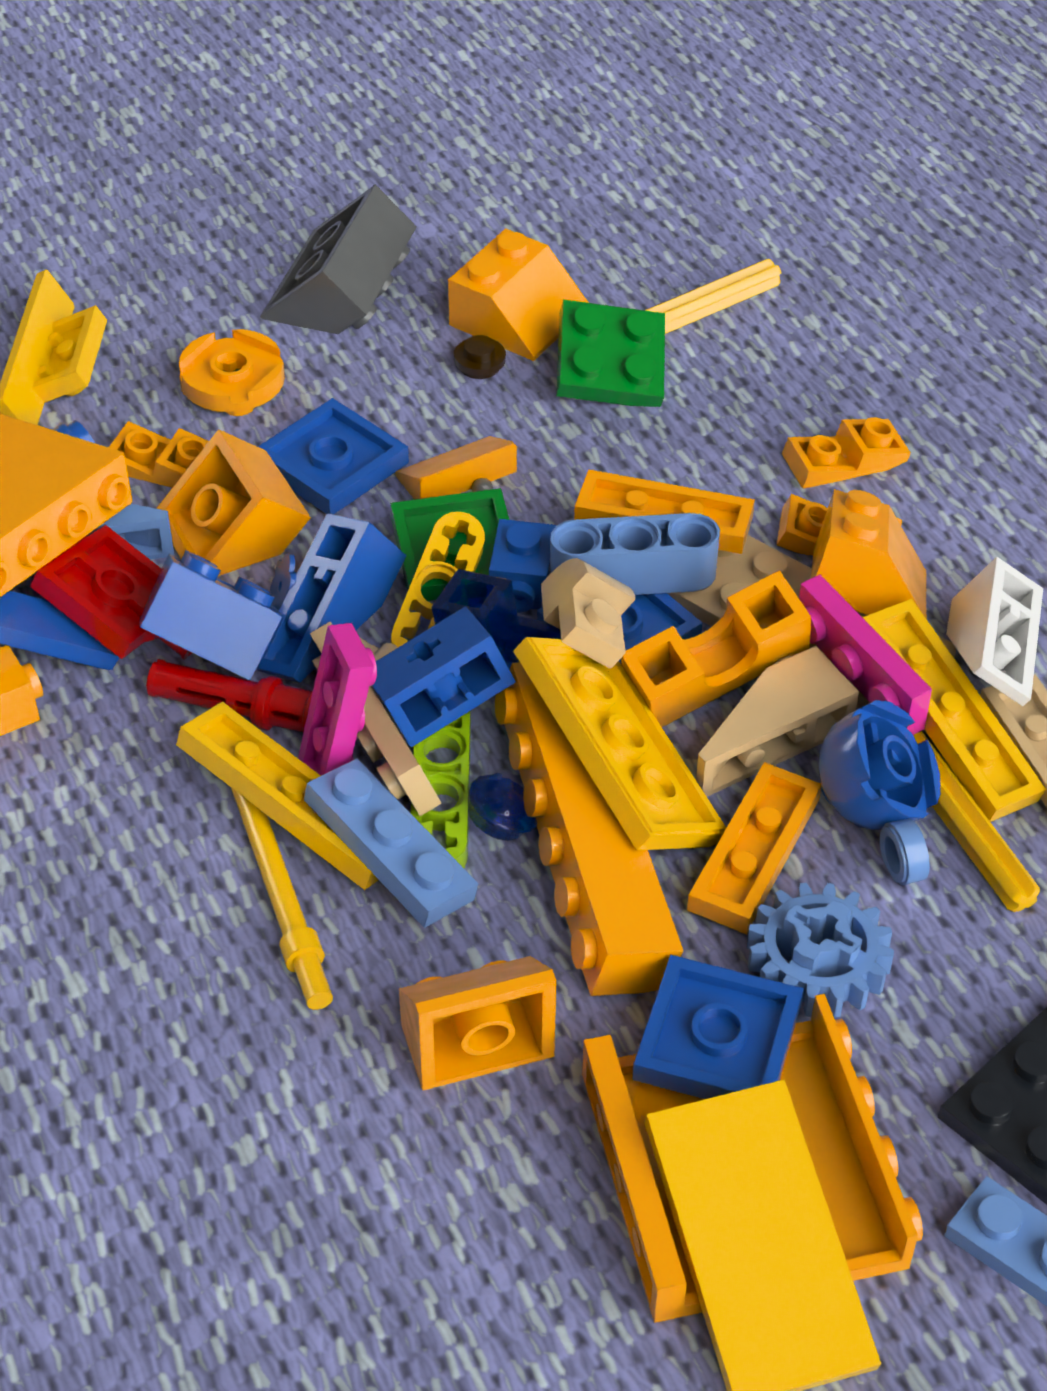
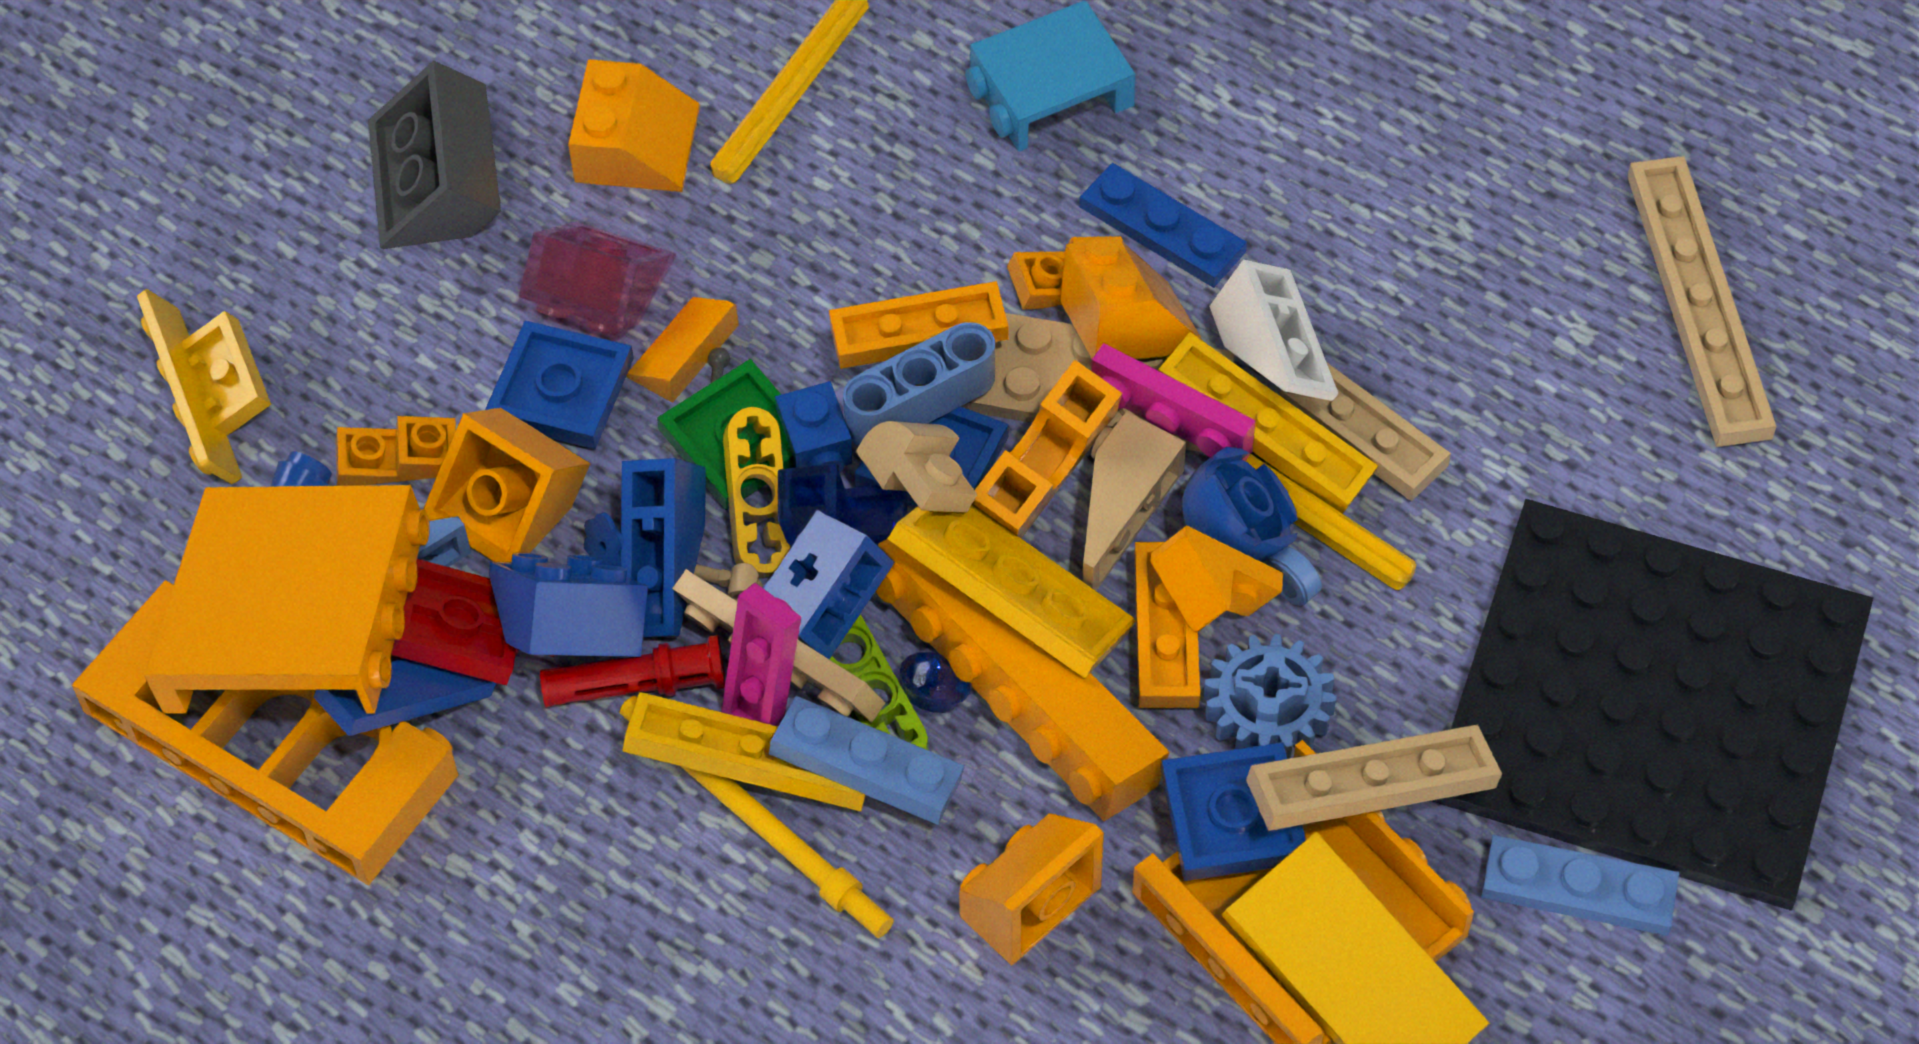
camera: 25 degrees left, 10 degrees up
(236, 392) = (403, 353): light orange plate -> none
(411, 387) = (593, 276): none -> clear pink slope
(479, 357) = (631, 210): dark brown plate -> none
(611, 354) = (762, 161): green plate -> none
(815, 808) = (1212, 577): none -> light orange slope
(855, 451) = (1040, 178): light orange slope -> none
(877, 1055) = (1373, 777): none -> tan plate
(907, 365) = (1048, 69): none -> dark azure panel
(943, 520) = (1163, 224): none -> blue plate

